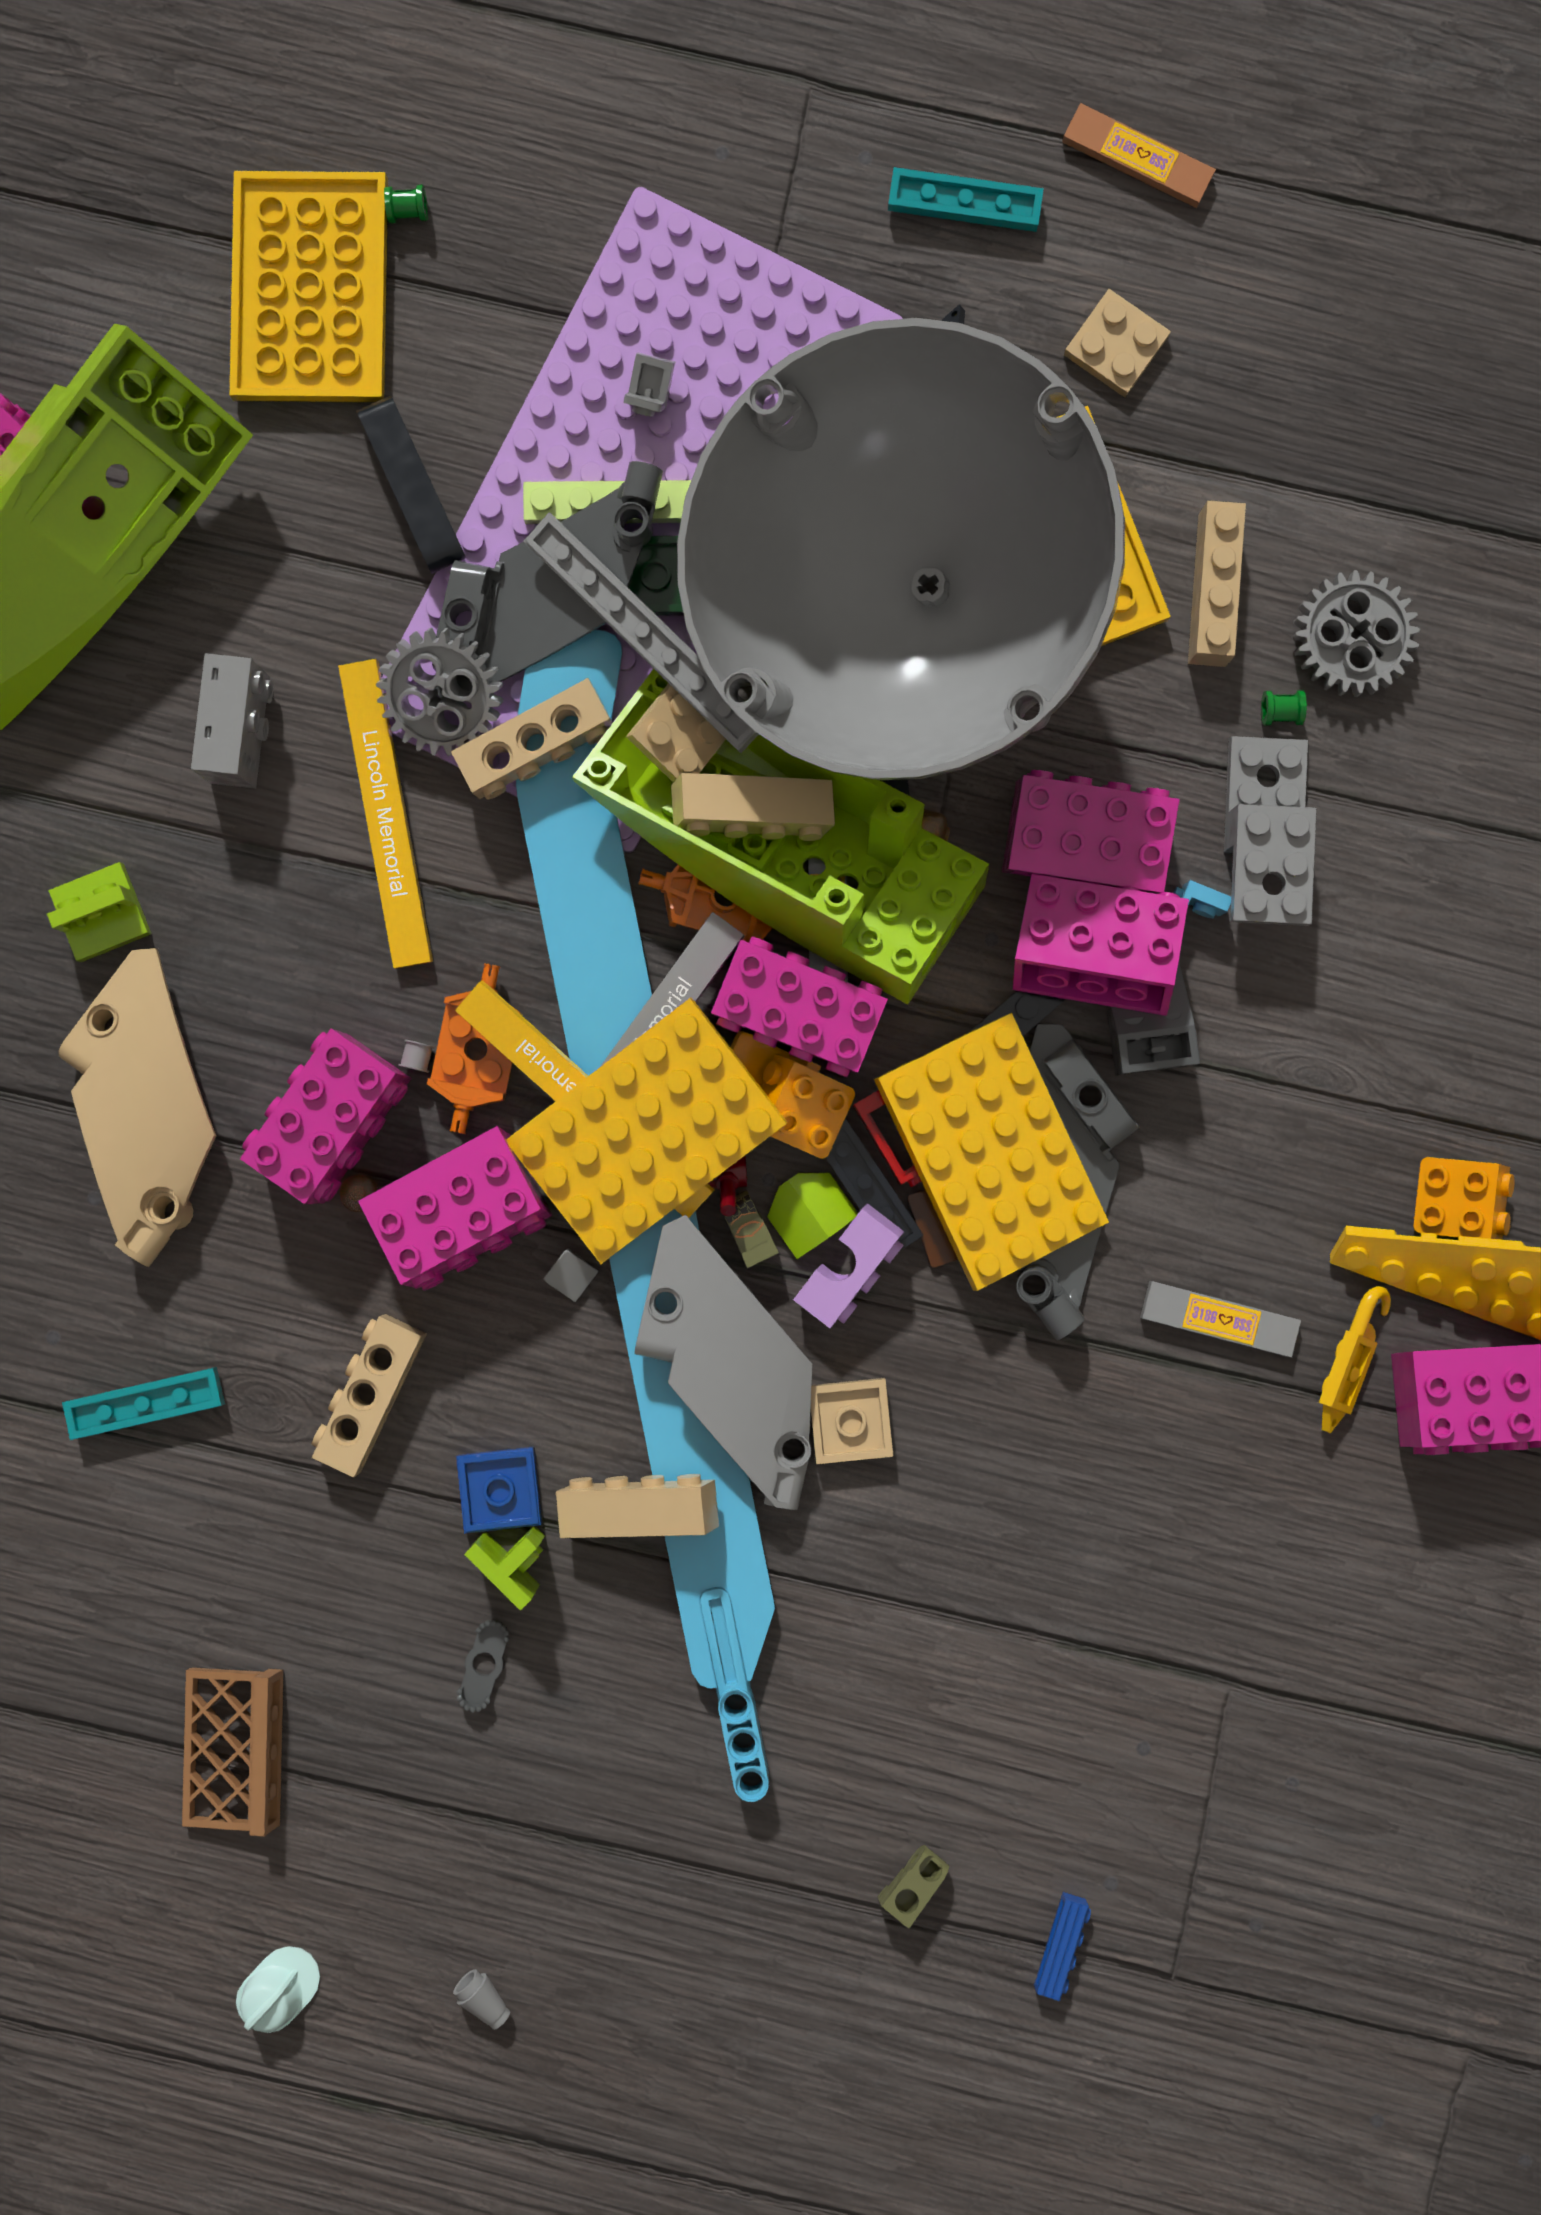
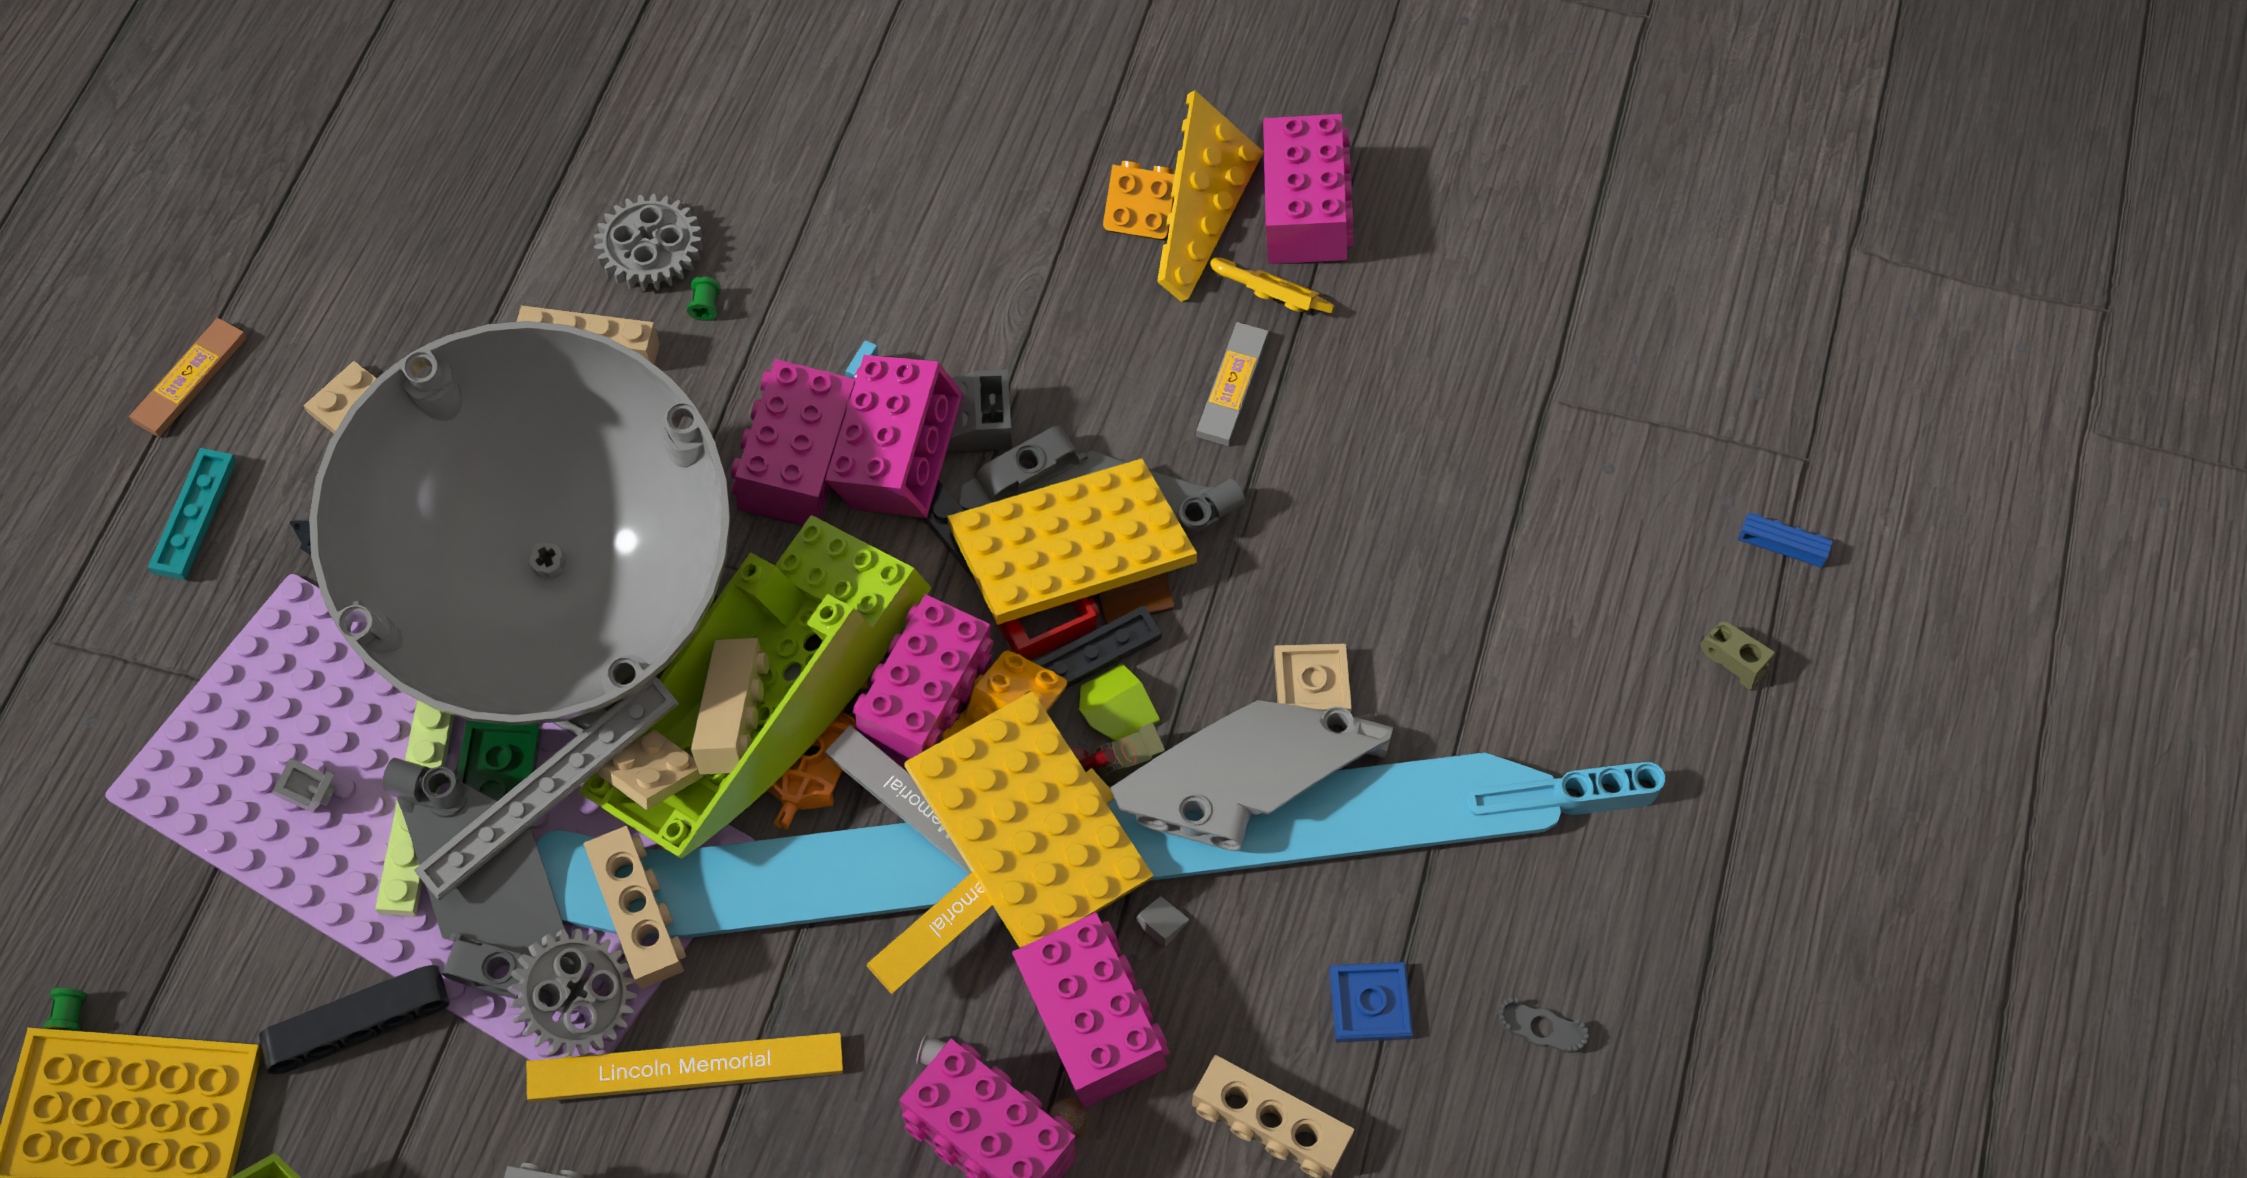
camera: 90 degrees left, 25 degrees down
(457, 1076) = (956, 1017): orange plate -> none
(481, 1999) = (1868, 1045): light grey cone -> none
(509, 1568) = (1439, 980): lime bracket -> none
(637, 1508) = (1389, 859): tan brick -> none
(830, 1294) = (1150, 641): lavender arch -> none
(1269, 831) = (810, 311): light grey bracket -> none

